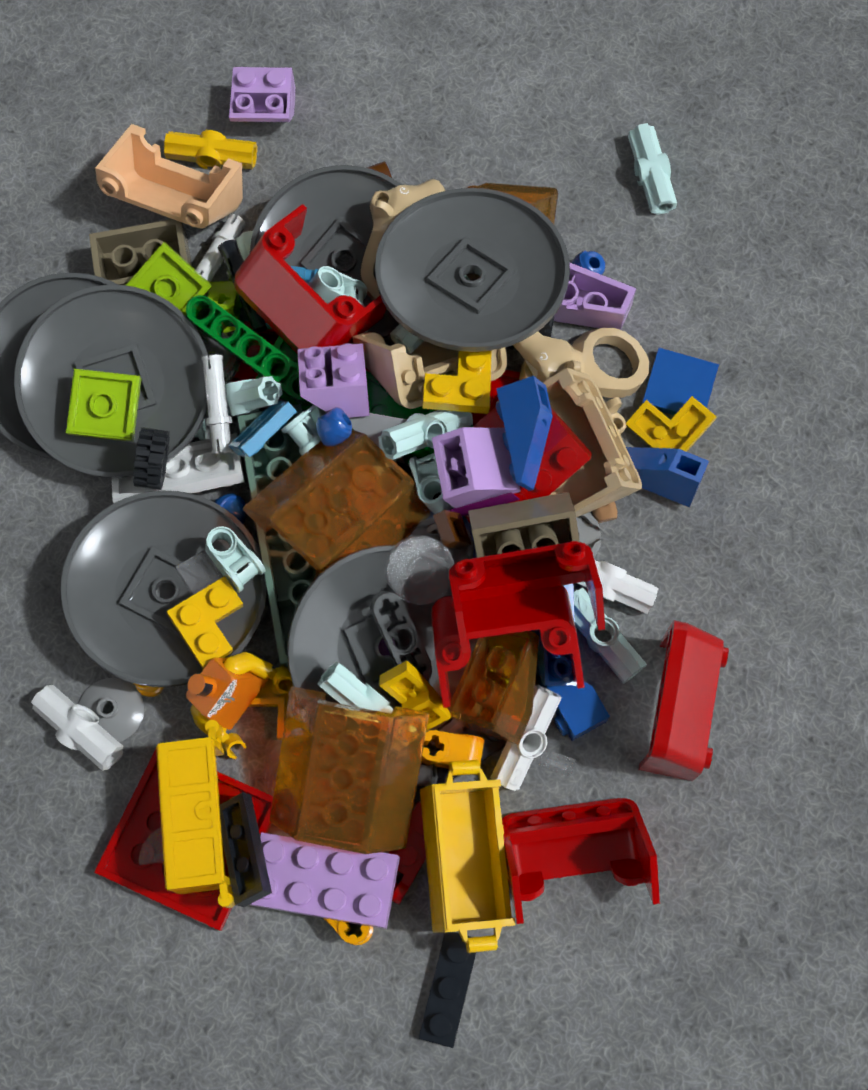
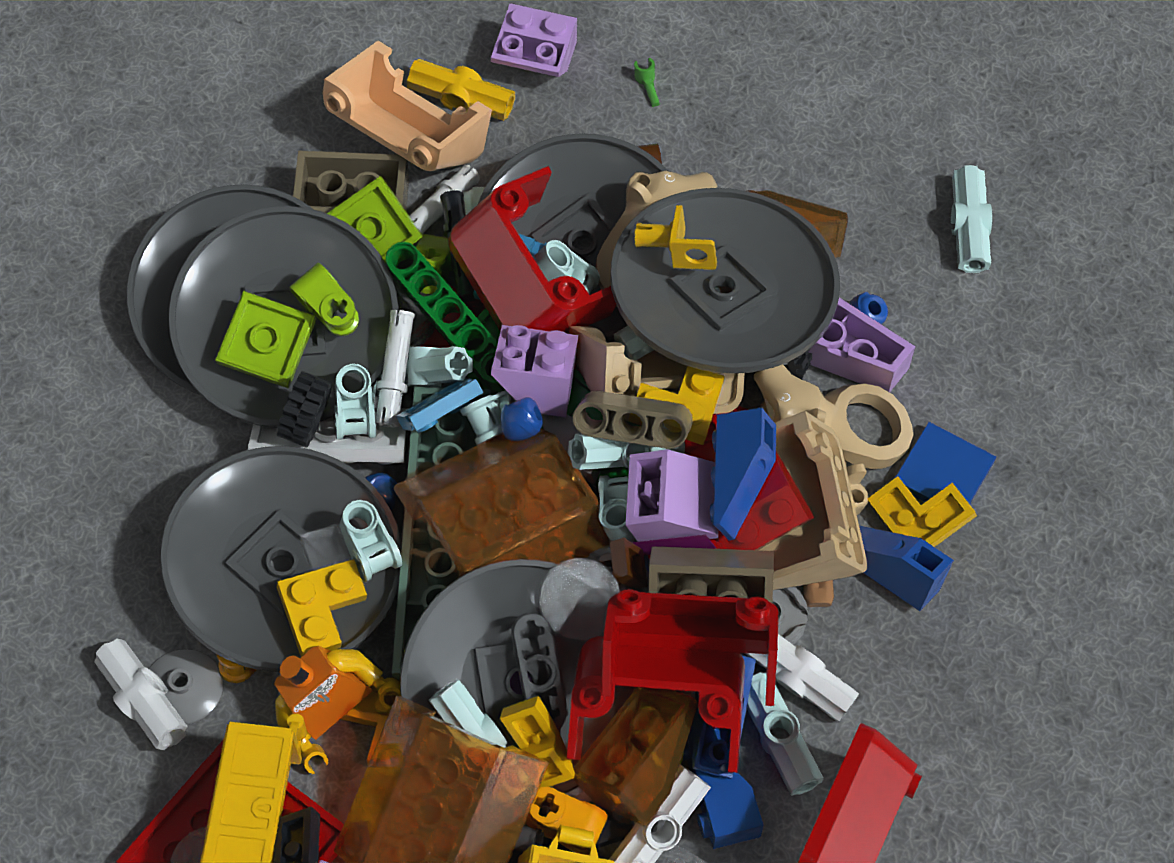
camera: 10 degrees right, 10 degrees down
(143, 358) = (322, 297): none -> lime piece
(192, 445) = (354, 405): none -> light aqua piece
(360, 106) = (646, 77): none -> bright green hand
(414, 417) = (616, 428): none -> dark tan beam
(420, 242) = (672, 237): none -> yellow bracket

